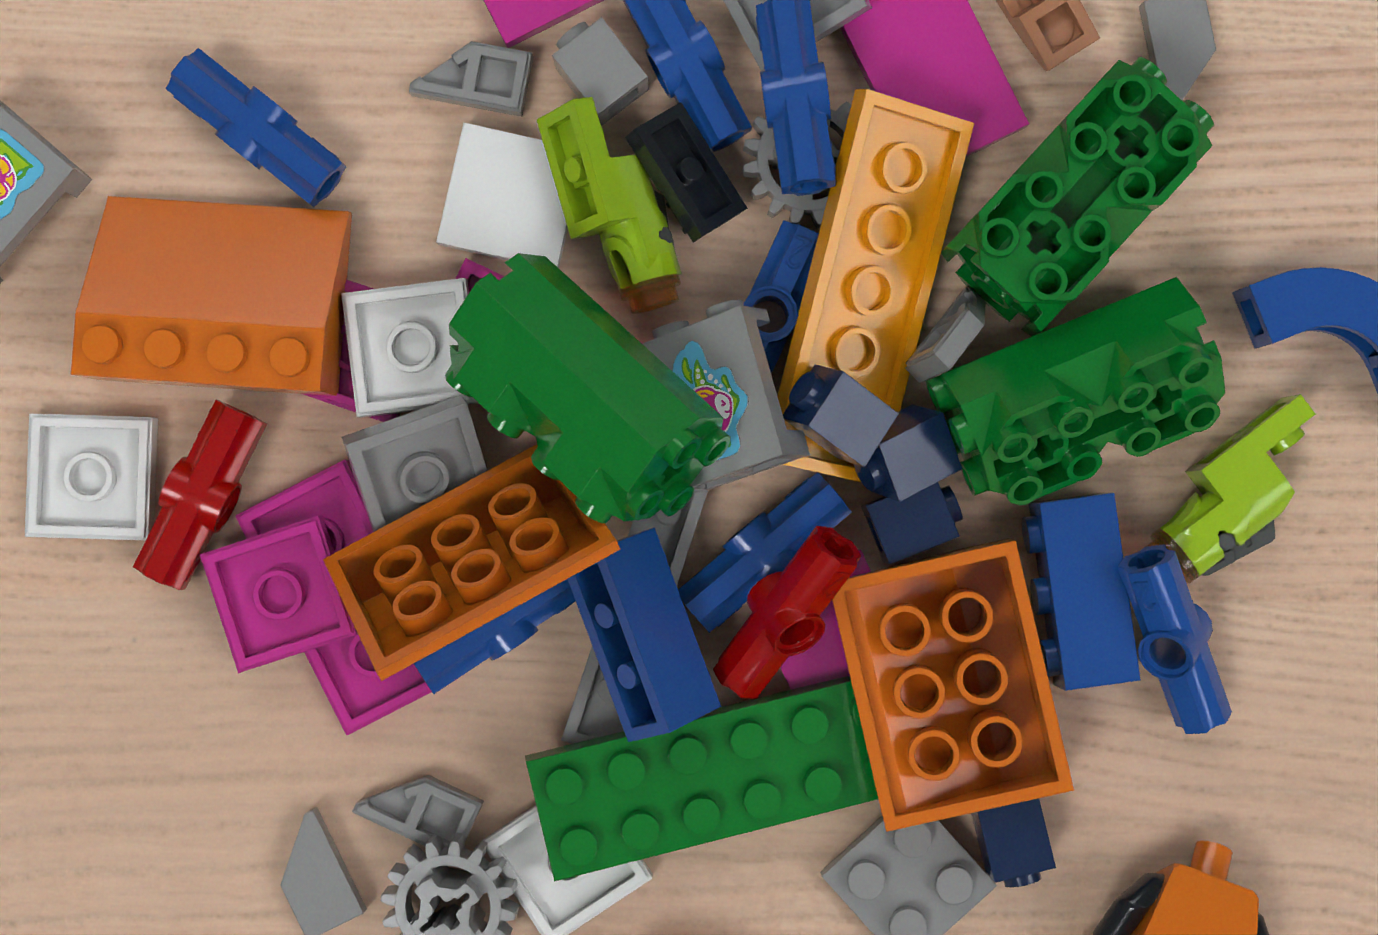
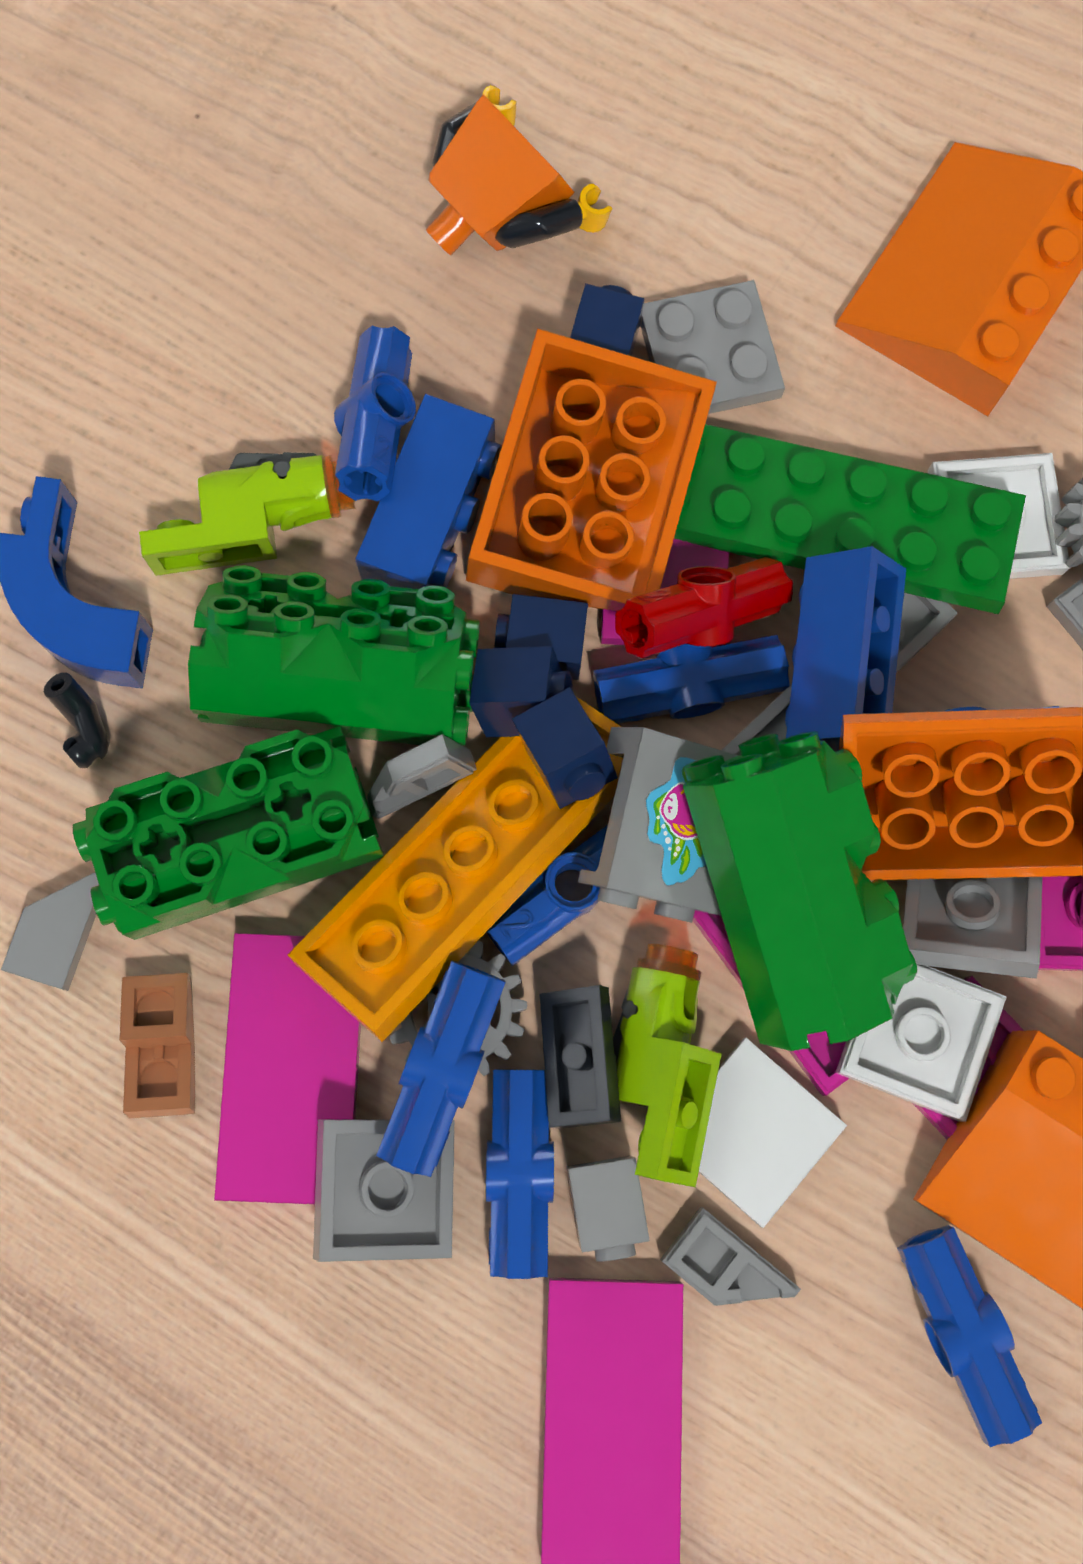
camera: 155 degrees left, 10 degrees down
(1267, 237) = (82, 715): none -> black arm

